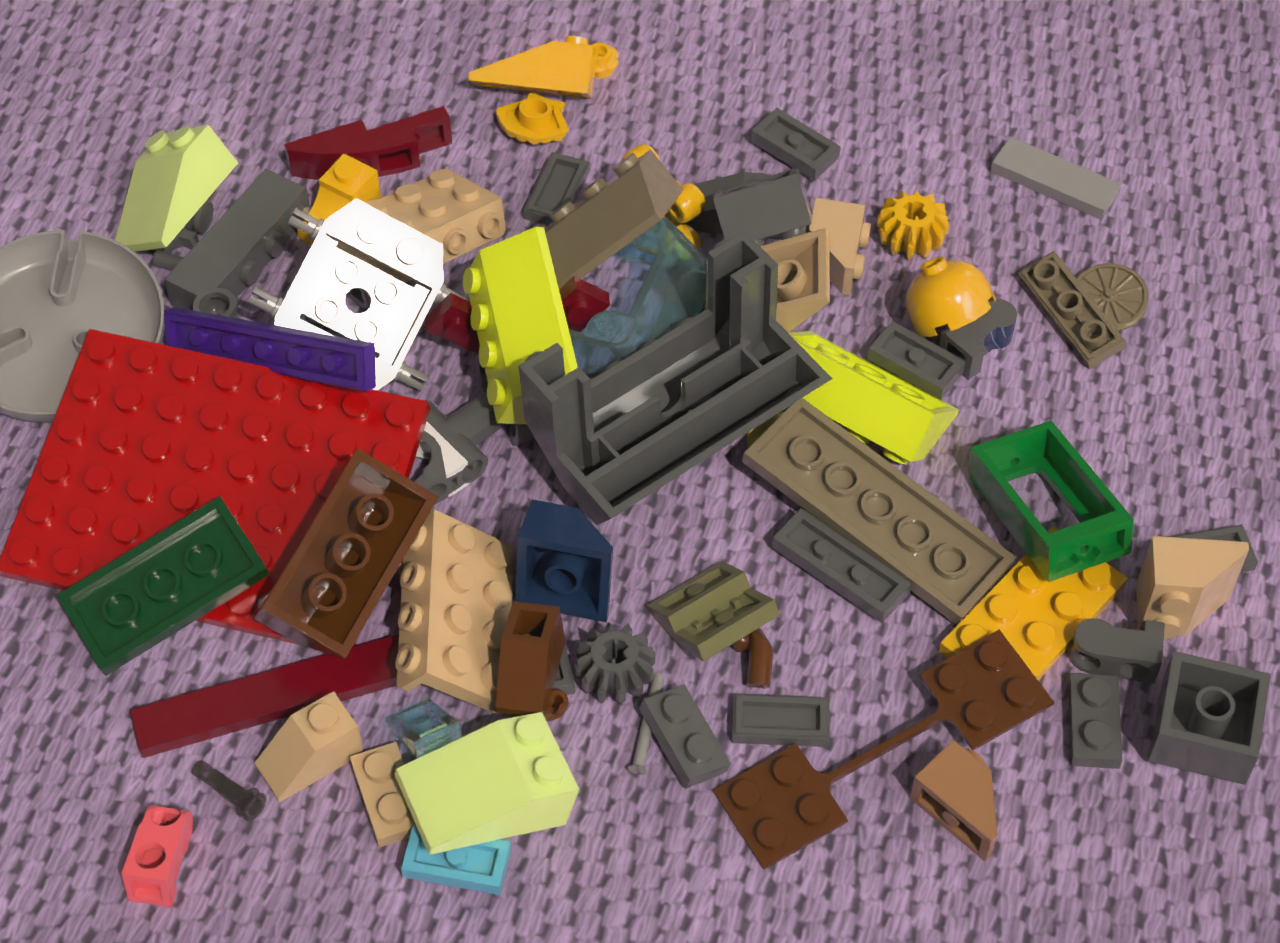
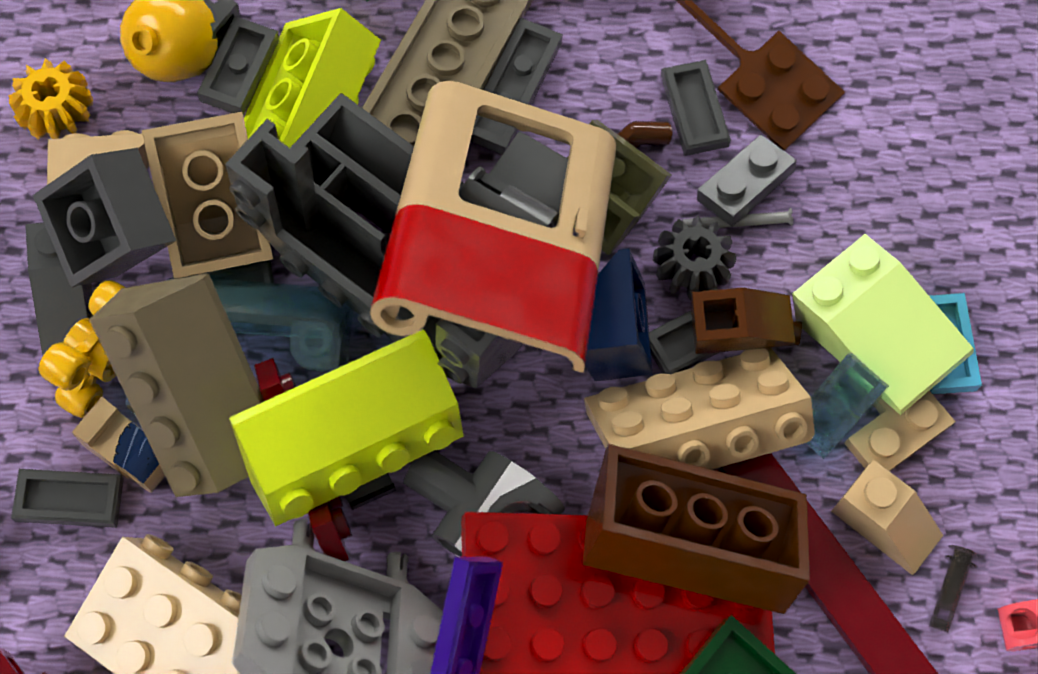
camera: 110 degrees left, 15 degrees up
(590, 403) = (485, 264): none -> piece
(682, 477) = (522, 183): none -> dark grey piece

